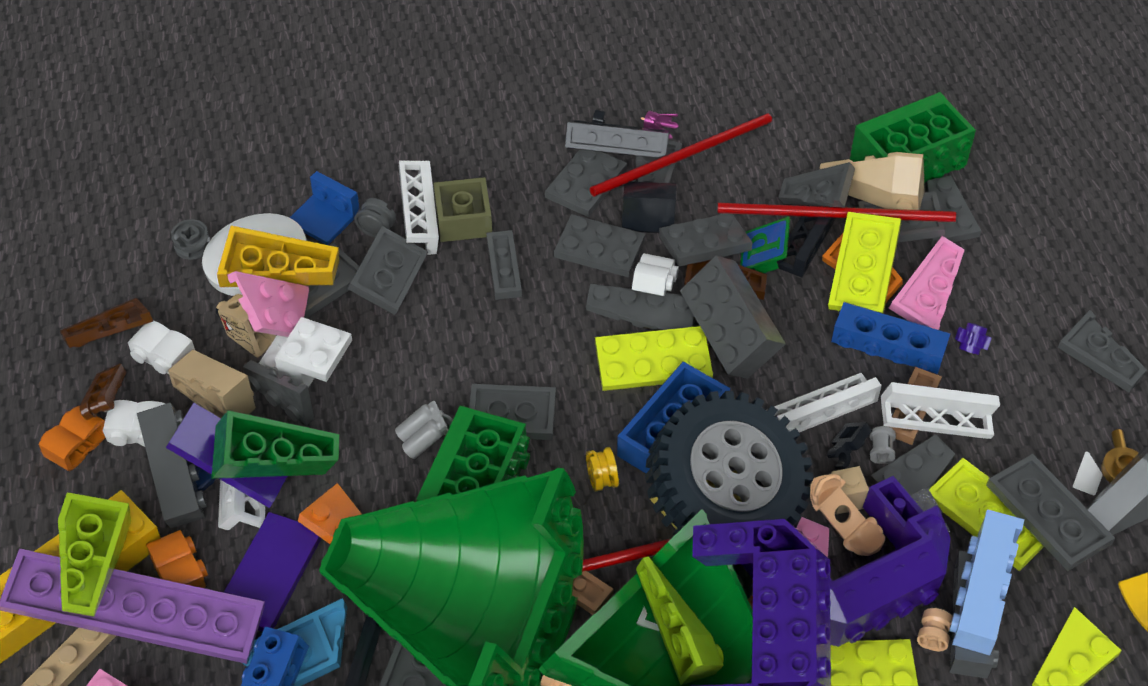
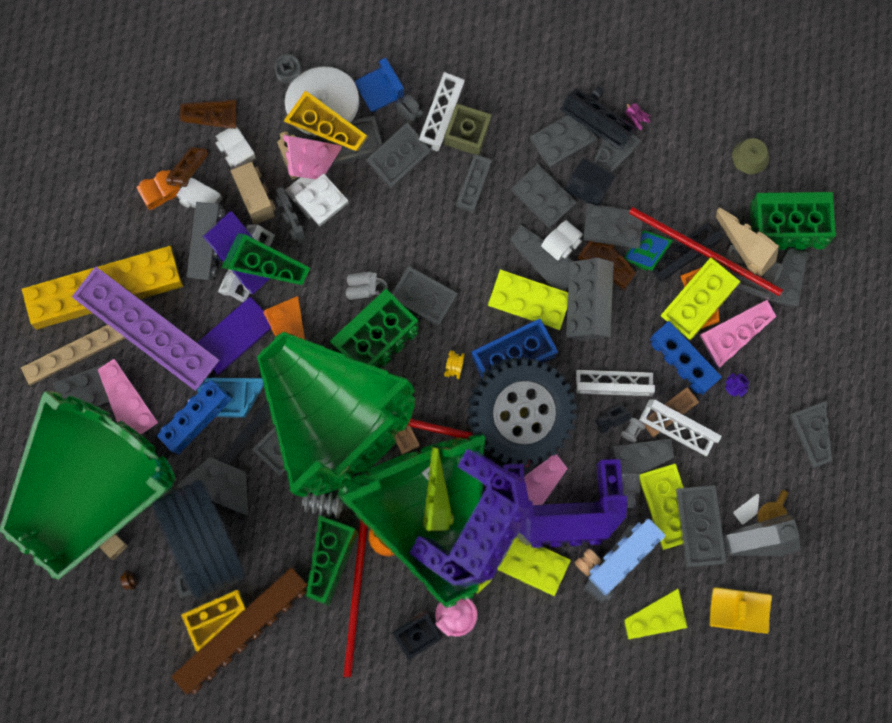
camera: 25 degrees right, 25 degrees up
(89, 548) = (131, 288): lime wedge -> none
(175, 560) = (183, 307): orange brick -> none
(680, 155) = (634, 152): red piece -> none
(818, 109) = (750, 156): none -> olive cone
(819, 188) = (707, 225): dark grey wing -> none
(854, 488) = (592, 450): tan brick -> none
(859, 534) = (581, 482): light nougat piece -> none

